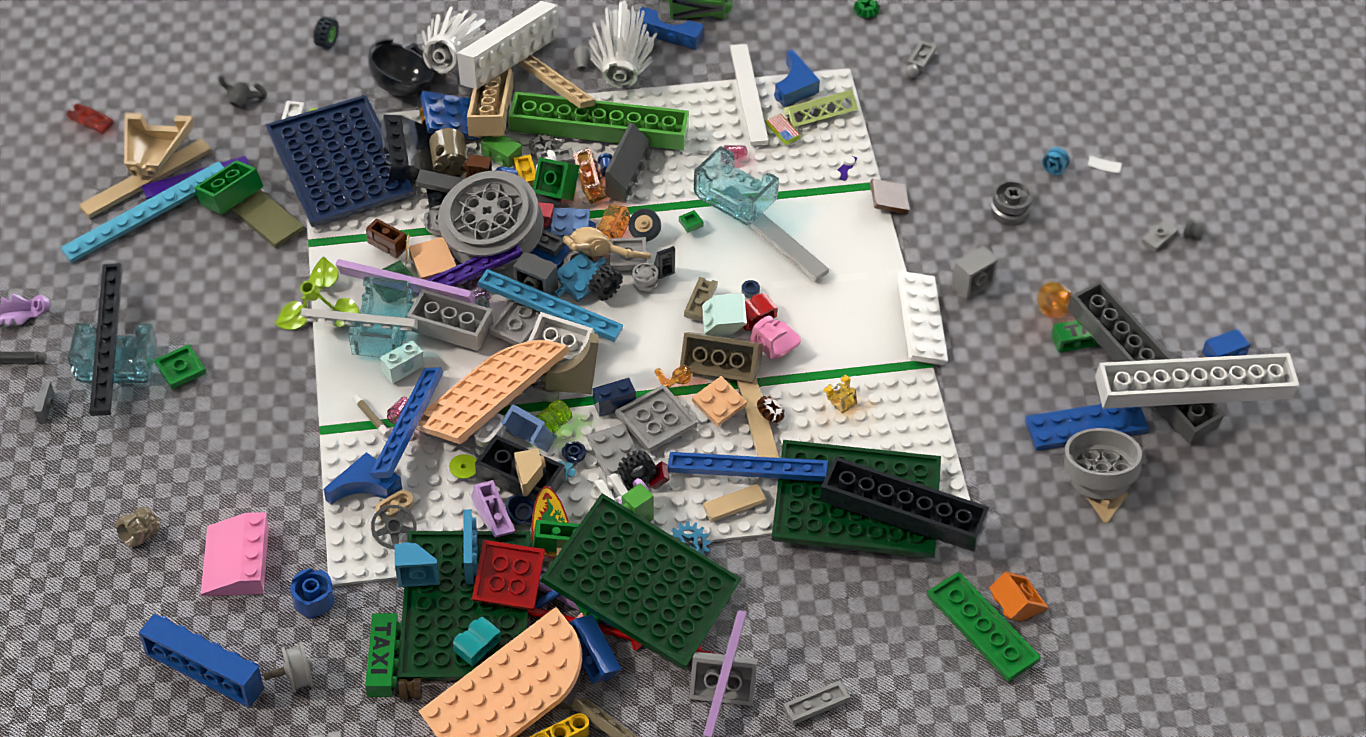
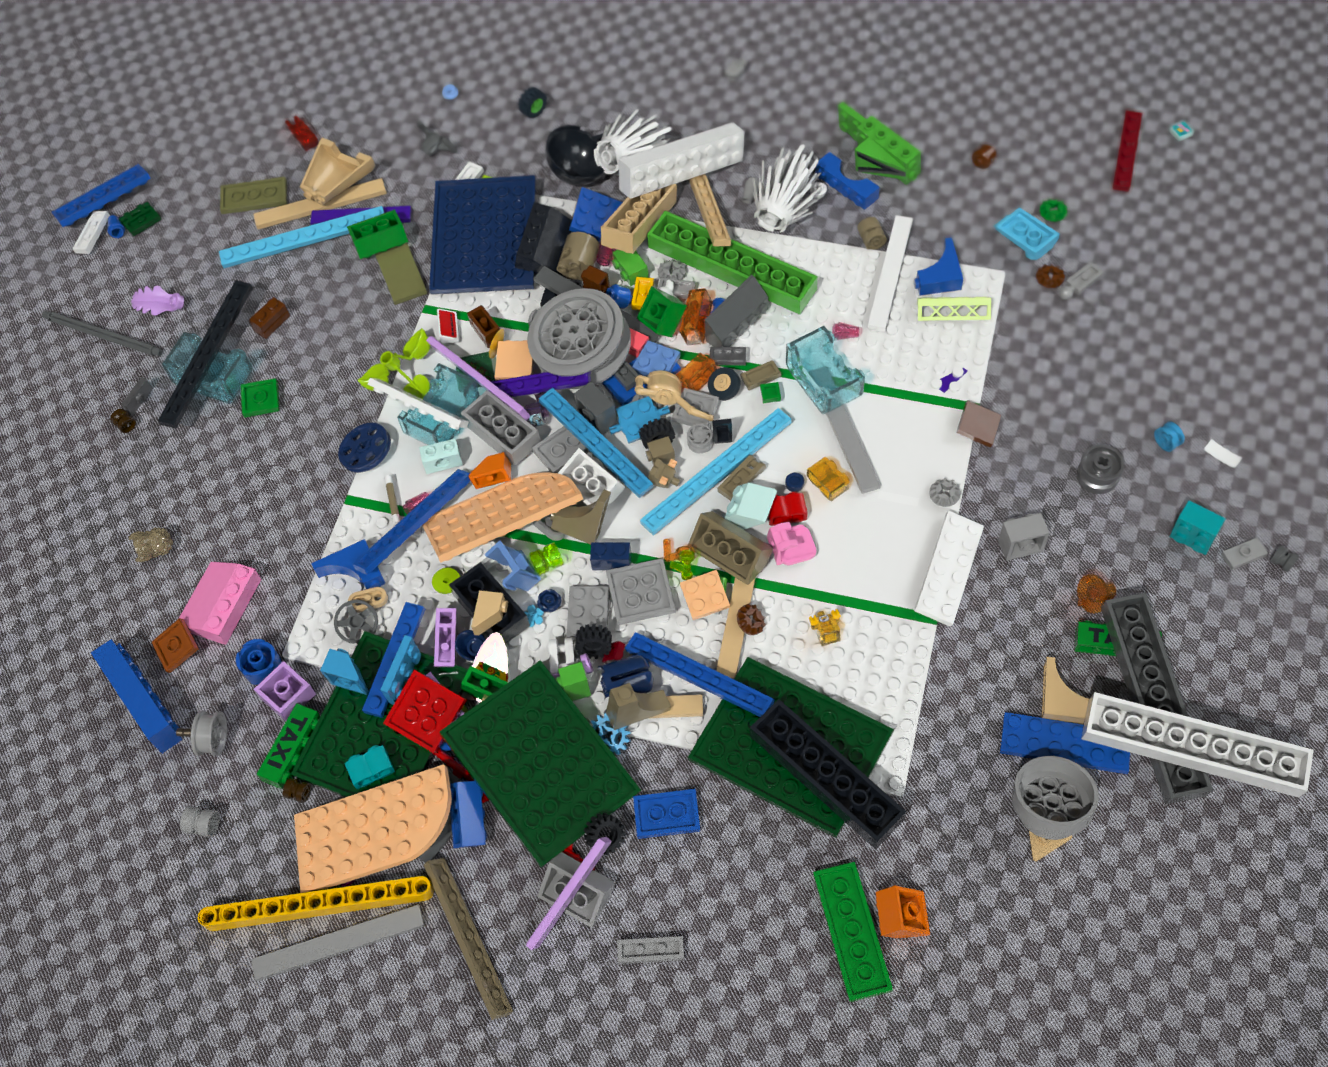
camera: 30 degrees right, 10 degrees up
(41, 428) = (123, 421): none -> dark brown wheel
(67, 188) = (253, 195): none -> olive tile
(151, 292) = (269, 317): none -> reddish brown brick
(213, 607) = (175, 645): none -> dark orange tile
(231, 44) = (450, 92): none -> light blue plate
(317, 378) = (370, 444): none -> dark blue wedge
(344, 248) = (447, 326): none -> slope
(353, 608) = (283, 690): none -> lavender brick
(451, 545) = (406, 625): none -> blue plate
(460, 359) = (491, 471): none -> orange slope
(472, 144) = (605, 255): none -> clear pink brick
(615, 298) = (660, 449): none -> dark tan brick
(627, 314) = (663, 474): none -> dark tan piece
(636, 200) = (728, 355): none -> flat silver plate
(673, 209) = (760, 375): none -> dark tan tile
(673, 300) = (715, 471): none -> medium azure plate
(682, 490) = (627, 670): none -> dark blue cylinder
(688, 374) = (686, 557): none -> clear neon green piece
(704, 505) = (631, 707): none -> dark tan arch
(715, 66) = (871, 233): none -> dark tan wheel
(719, 621) = (600, 822): none -> black tyre
(773, 591) = (666, 813): none -> blue plate
(780, 276) = (828, 479): none -> clear yellow brick
(783, 129) = (906, 319): tile -> none
(855, 31) = (1028, 233): none -> medium azure slope
(886, 65) = (1043, 278): none -> reddish brown gear
(888, 264) = (943, 499): none -> light grey gear
(1067, 391) = (1058, 699): none -> tan arch
(1114, 223) = (1197, 527): none -> teal brick
(1226, 344) = (1256, 708): blue brick -> none

